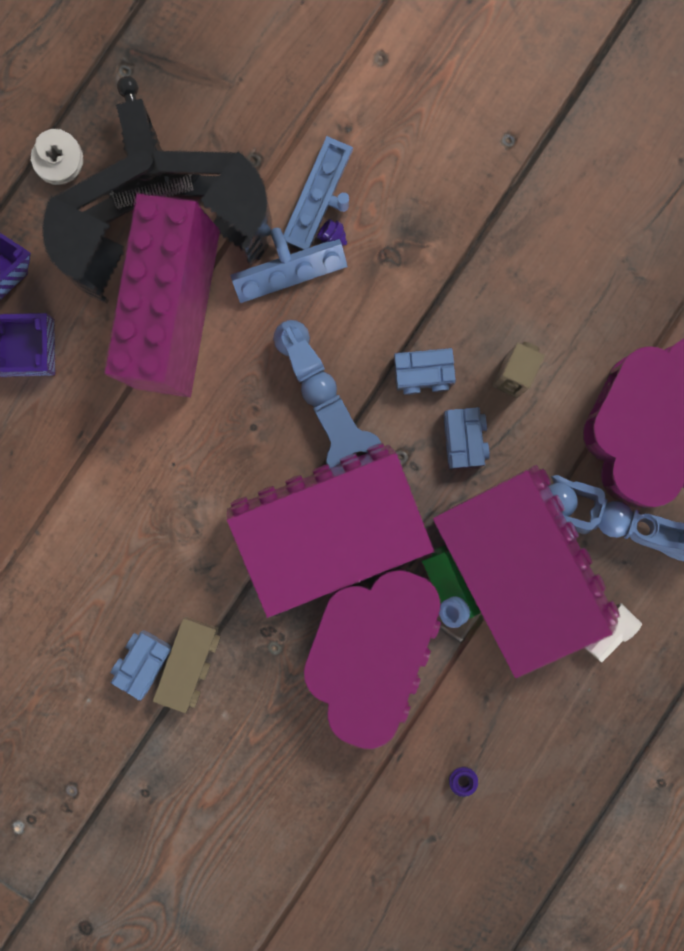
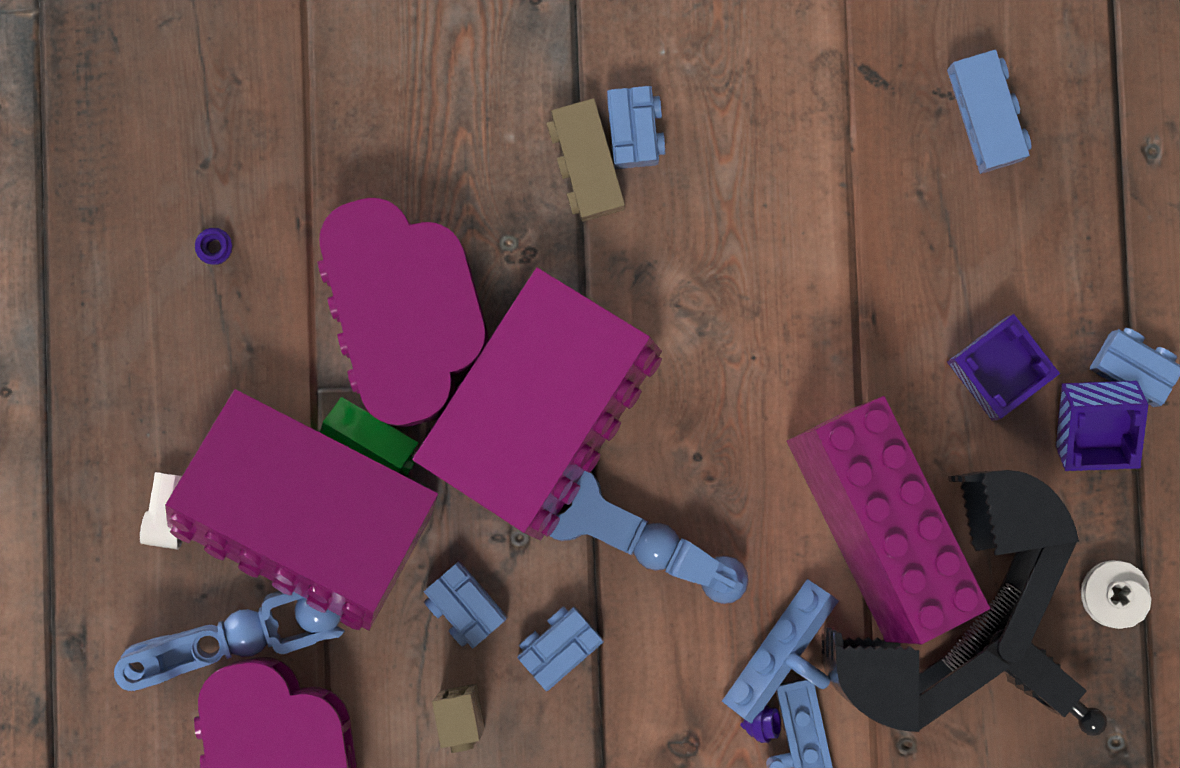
camera: 145 degrees right, 0 degrees up
(454, 612) = (346, 413): medium blue tile -> none

